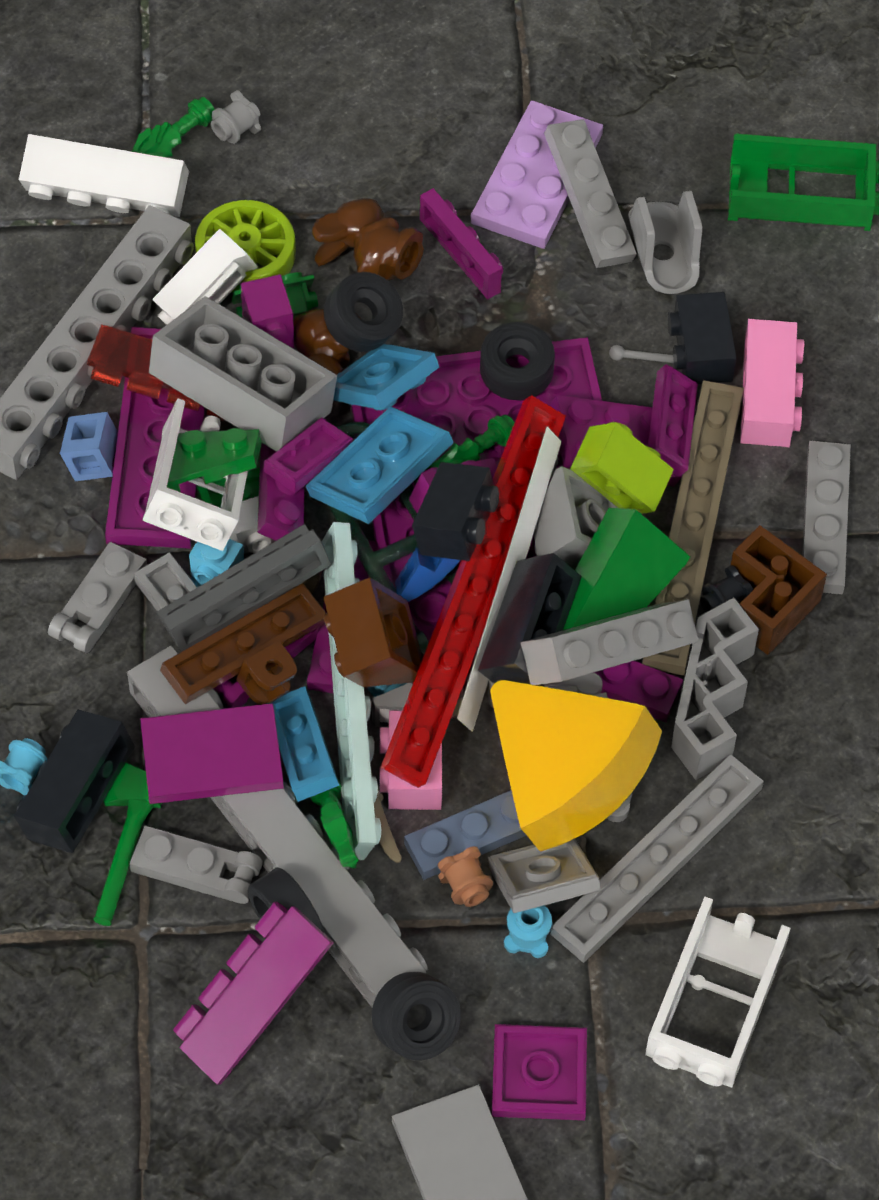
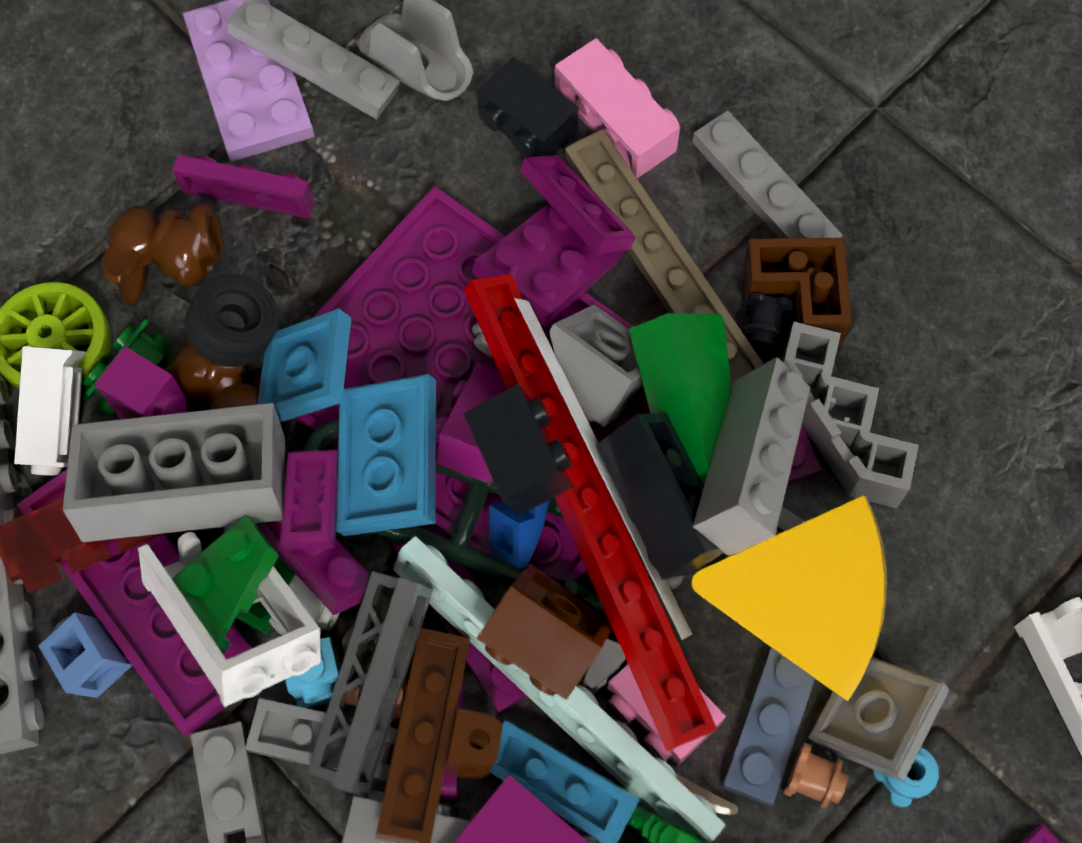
camera: 40 degrees left, 10 degrees up
(498, 432) = (448, 331): green piece -> none
(523, 340) = (399, 230): black tyre -> none
(617, 353) = (464, 179): light grey hinge -> none
(622, 467) = (596, 281): lime brick -> none
(656, 858) = (943, 608): light grey plate -> none

